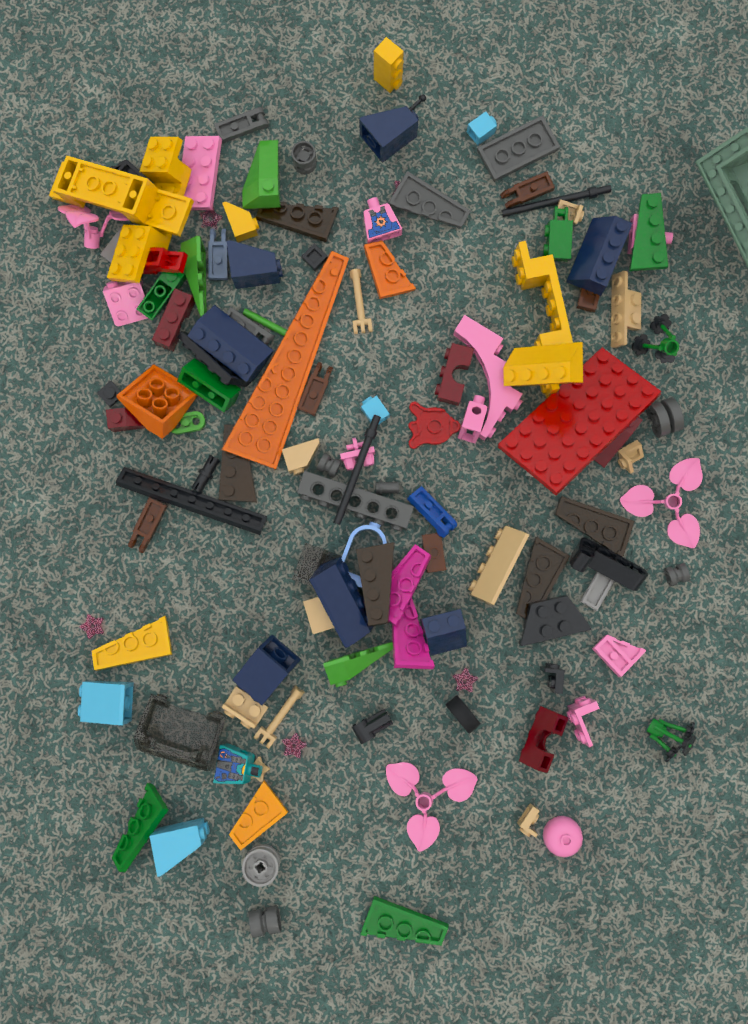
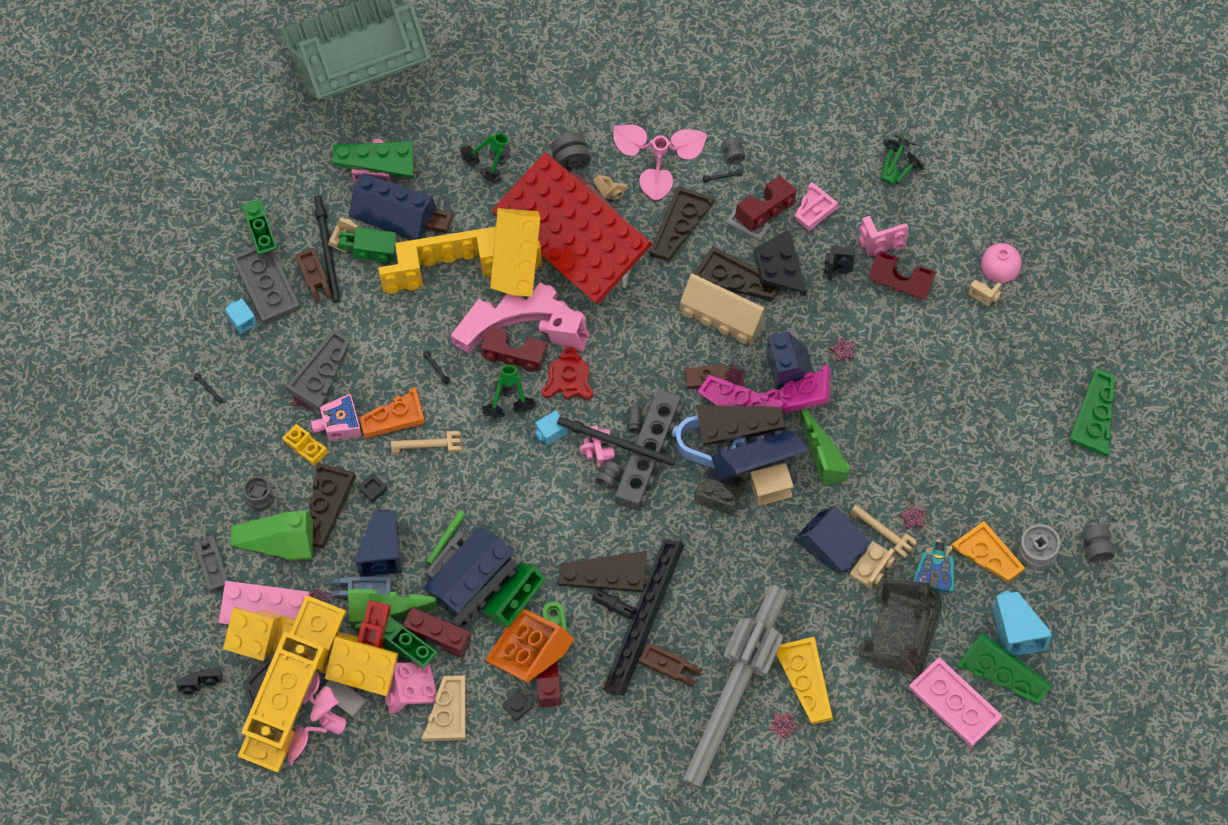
camera: 85 degrees left, 20 degrees down
(103, 335) = (449, 712): none -> tan wing
(106, 702) = (867, 702): medium azure slope -> none
(111, 781) = (955, 702): none -> bright pink plate
(130, 123) = (192, 682): none -> black slope
(150, 595) = (749, 651): none -> light grey axle
(241, 222) = (326, 563): yellow slope -> none
(273, 404) = (541, 530): orange wing -> none
(300, 456) = (598, 503): tan slope -> none
(314, 391) = (524, 489): reddish brown hinge -> none
(356, 197) = (305, 445): none -> yellow slope
(370, 727) = (892, 441): black piece -> none
(388, 65) = (166, 398): yellow brick -> none
(389, 131) = (240, 404): dark blue slope -> none
(418, 369) = (505, 386): none -> plant
(420, 828) = (953, 358): bright pink plant -> none
(424, 315) = (427, 355): none -> black hinge
(432, 511) = (662, 374): blue plate -> none
(432, 574) = (735, 376): none -> clear pink plate
(463, 714) = (877, 347): black tyre -> none
(572, 136) = (259, 226): none -> green slope
(605, 595) = (755, 213): none -> dark red arch
(608, 563) = (713, 225): black beam -> none
(624, 309) = (455, 188): tan bracket -> none
(654, 580) = (739, 172): none -> black hinge

